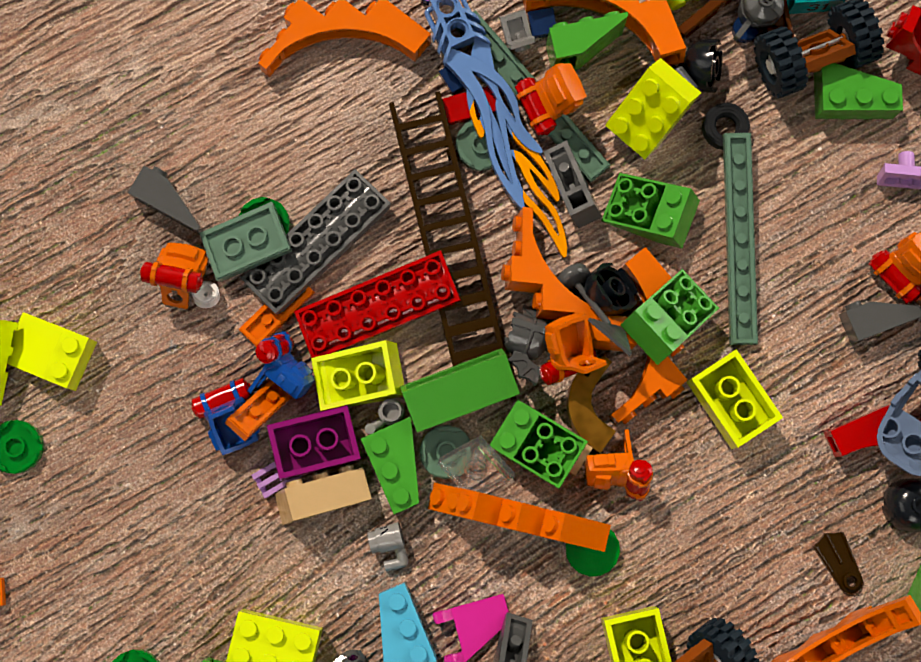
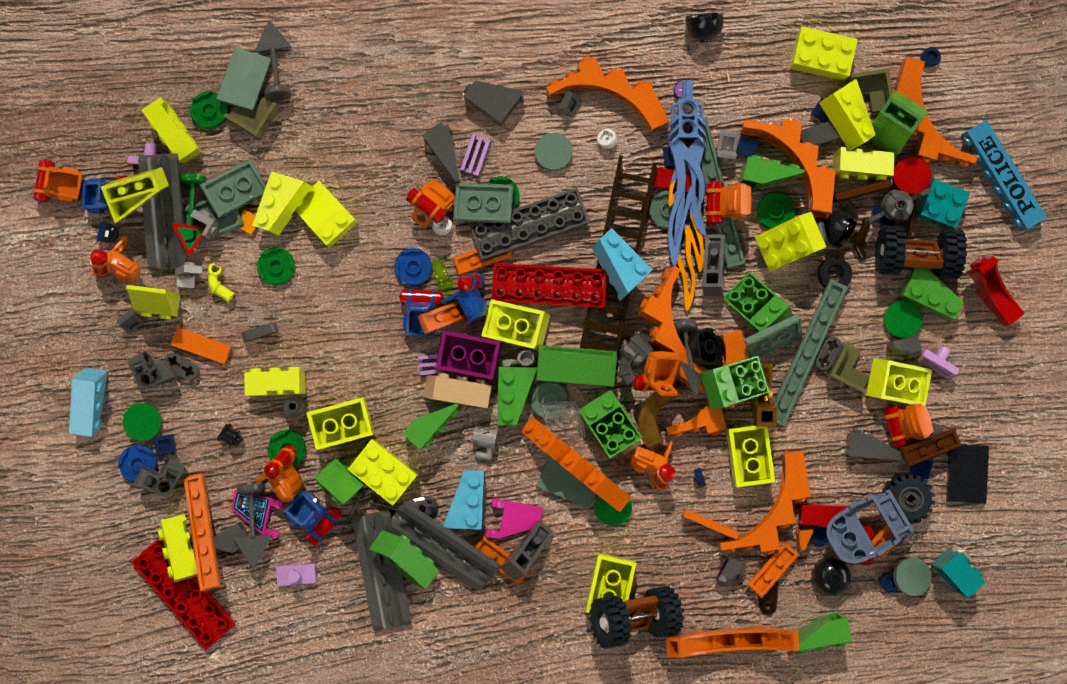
camera: 25 degrees right, 5 degrees up
(31, 541) = (260, 332): none -> dark grey beam
(79, 597) = (274, 382): none -> neon yellow wedge
(126, 614) = (300, 406): none -> dark grey brick
(189, 610) = (340, 423): none -> neon yellow brick
(193, 364) = (413, 267): none -> blue tile
(198, 191) = (480, 139): none -> lavender tile
(199, 109) = (493, 100): none -> dark grey slope
(235, 358) = (443, 279): none -> clear neon green piece
(296, 71) = (568, 104): none -> dark grey tile
(302, 563) = (424, 428): none -> bright green slope
(304, 138) = (553, 151): none -> sand green tile
(364, 92) = (607, 138): none -> white tile
(453, 233) = (620, 262): none -> medium azure wedge
(514, 549) = (564, 484): none -> sand green tile
(613, 82) = (775, 210): none -> green tile
(684, 458) = (699, 477): none -> dark blue tile
(691, 236) = (774, 337): none -> sand green tile
(720, 331) = (763, 406): none -> pearl gold arch
(727, 511) = (710, 523): none -> orange tile
(734, 69) = (859, 238): none -> dark brown piece
(772, 227) = (831, 355): none -> dark grey beam
(781, 560) = (730, 571): none -> dark grey rock
(797, 242) = (843, 371): none -> olive panel
(806, 413) = (793, 487): none -> orange arch
(834, 532) = (772, 569): none -> orange tile
(836, 142) = (902, 319): none -> green tile
(852, 472) = (803, 537): none -> orange slope
(858, 174) = (905, 347): none -> dark grey rock
(869, 461) = (819, 536): none -> dark blue tile
(870, 220) = (899, 382): none -> neon yellow slope

